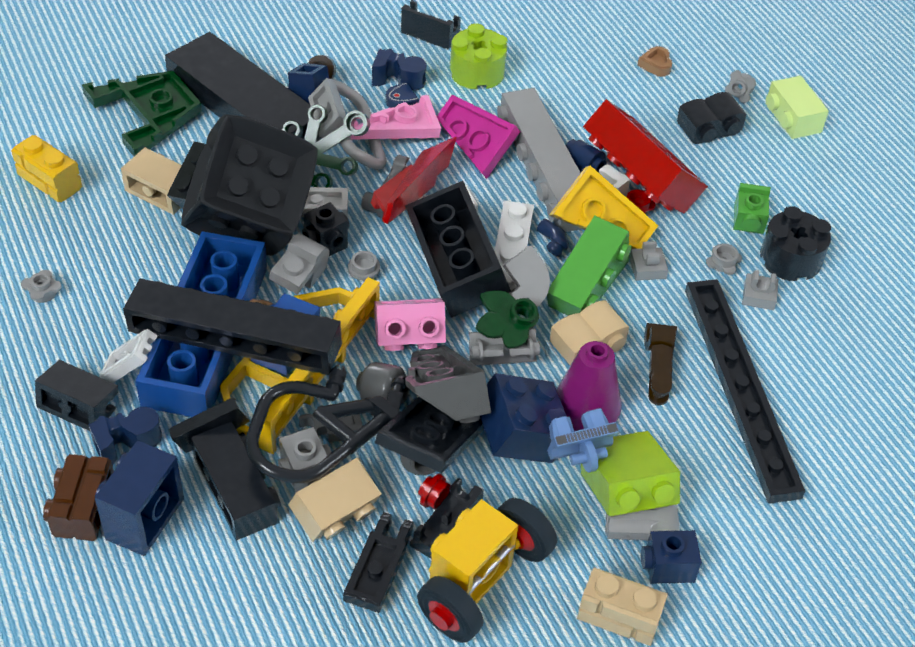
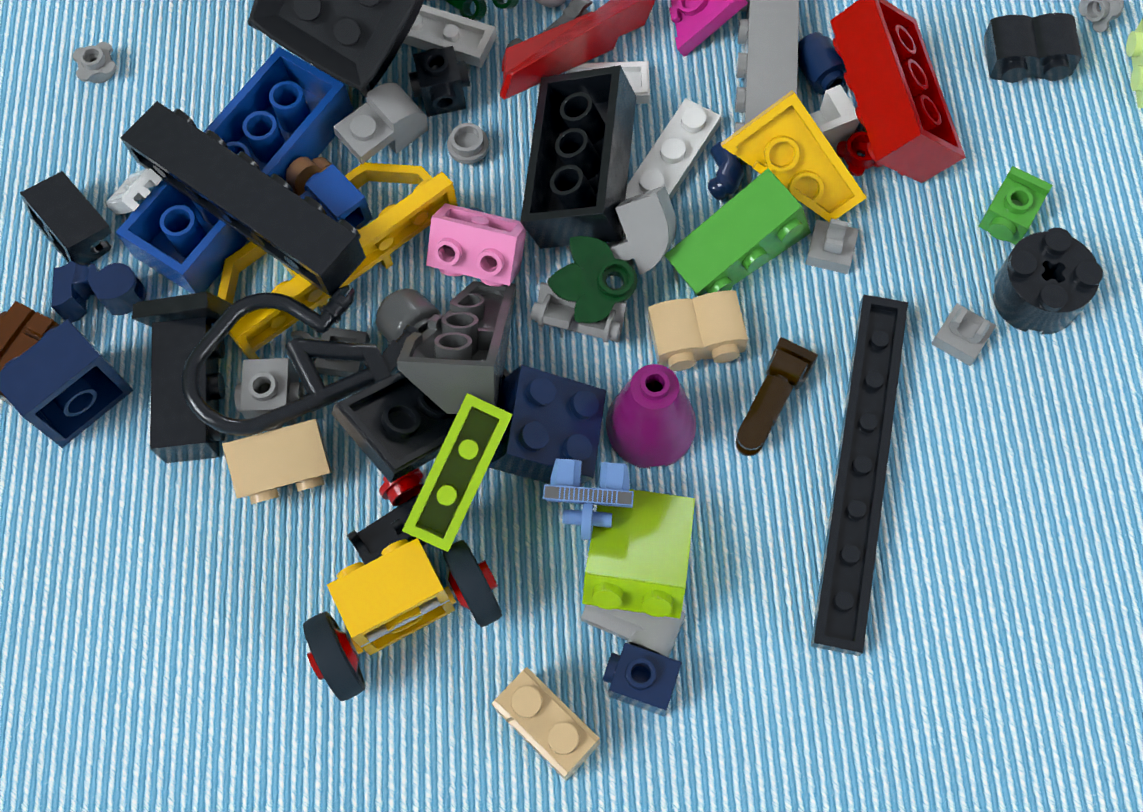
camera: 30 degrees right, 20 degrees up
(377, 565) = (297, 555): black hinge -> none
(489, 446) = (457, 472): none -> lime brick
(724, 258) = (943, 262): light grey plate -> none

